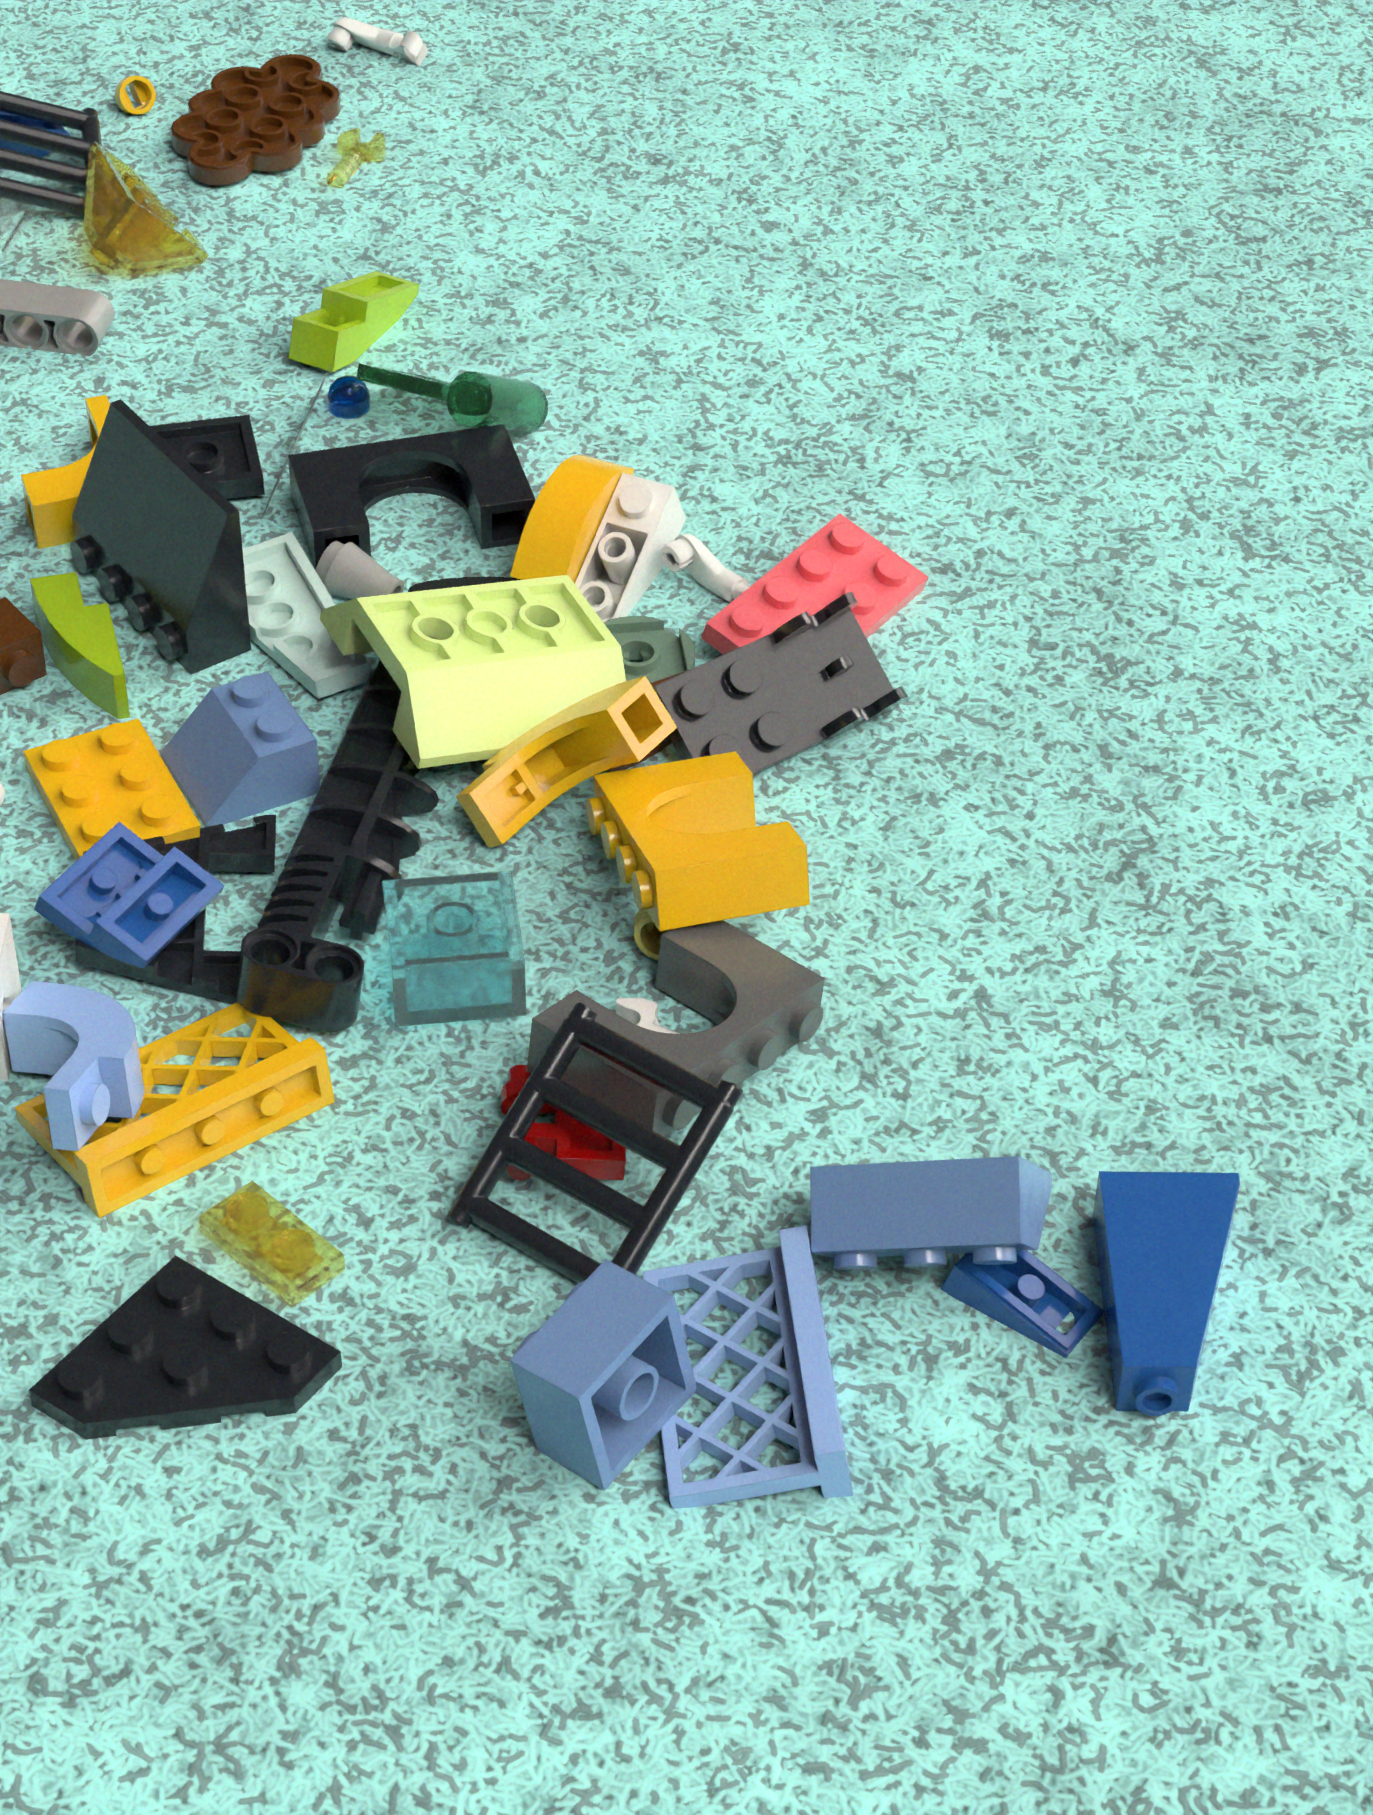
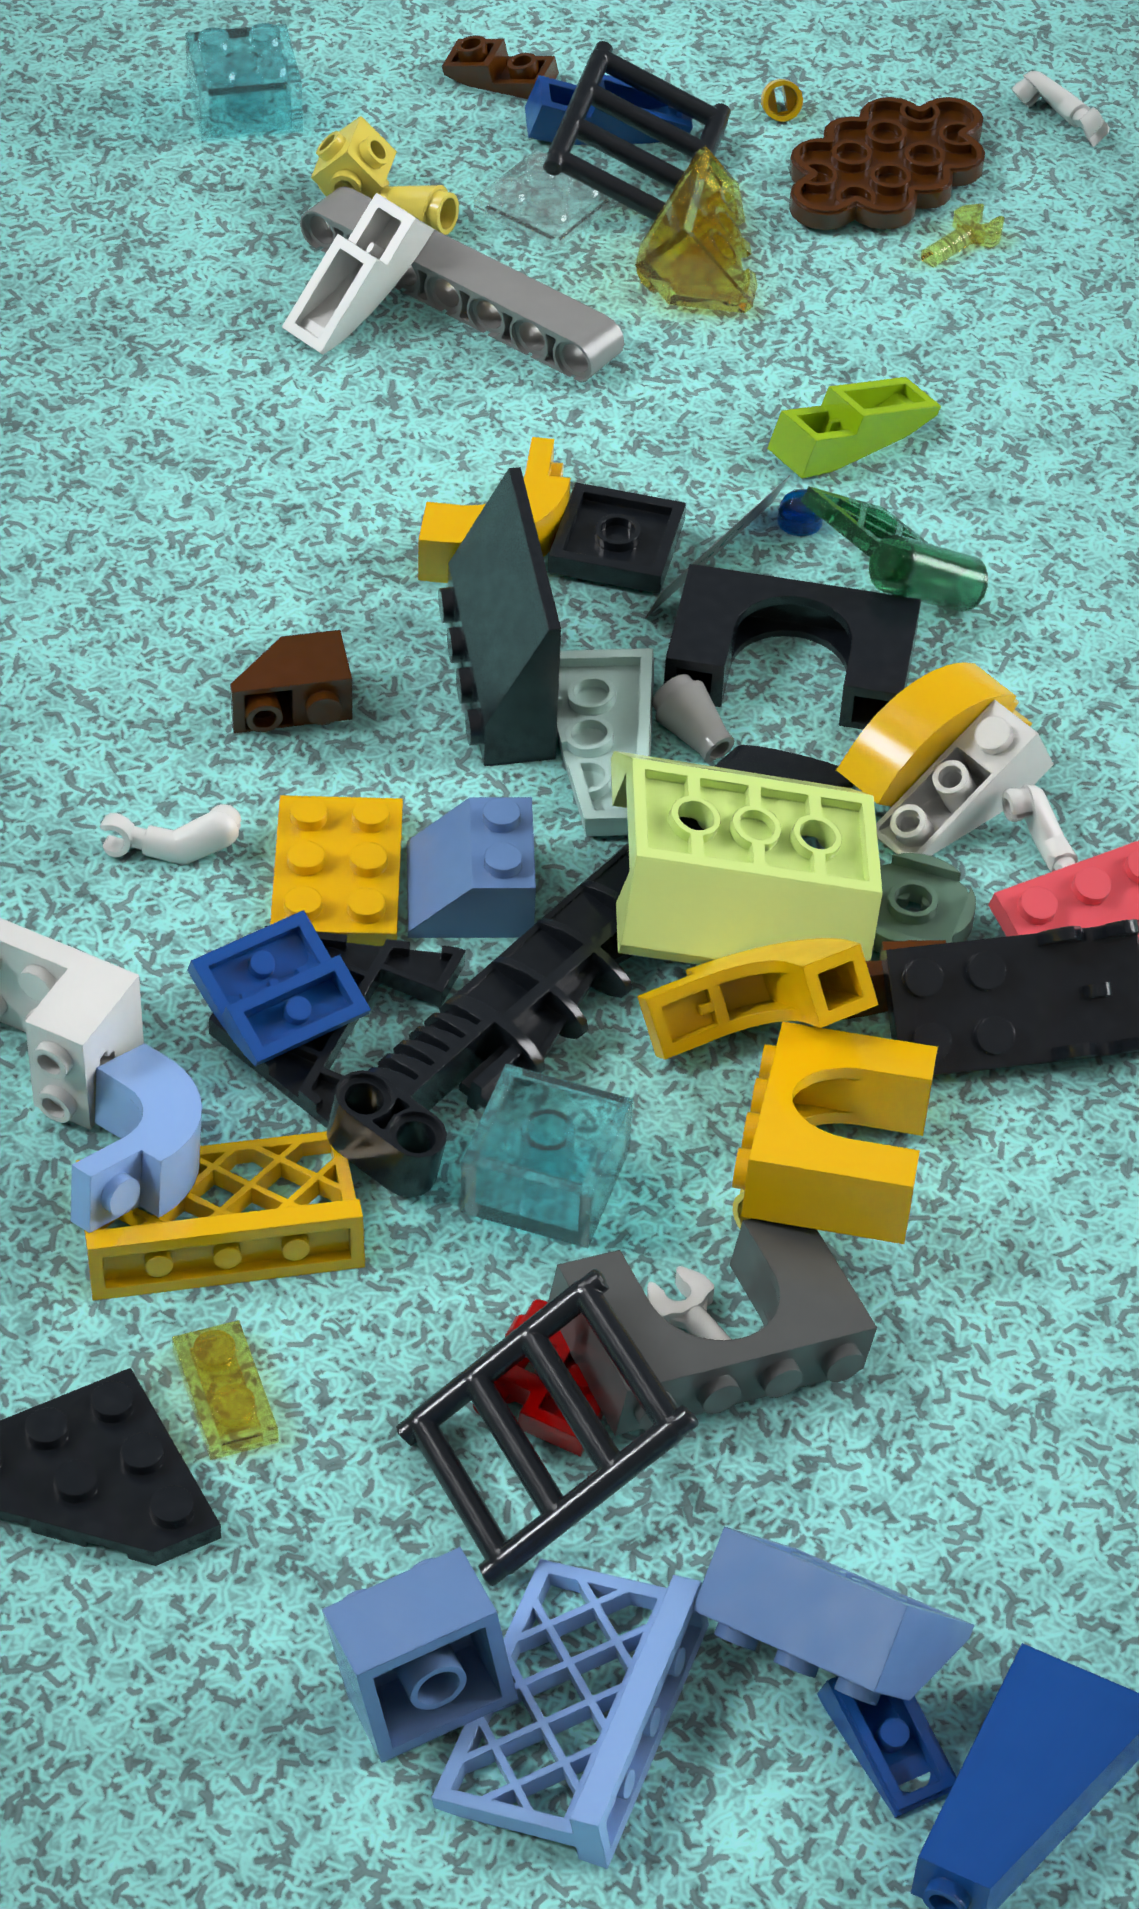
camera: 25 degrees right, 5 degrees up
(81, 641) = (395, 697): lime slope -> none

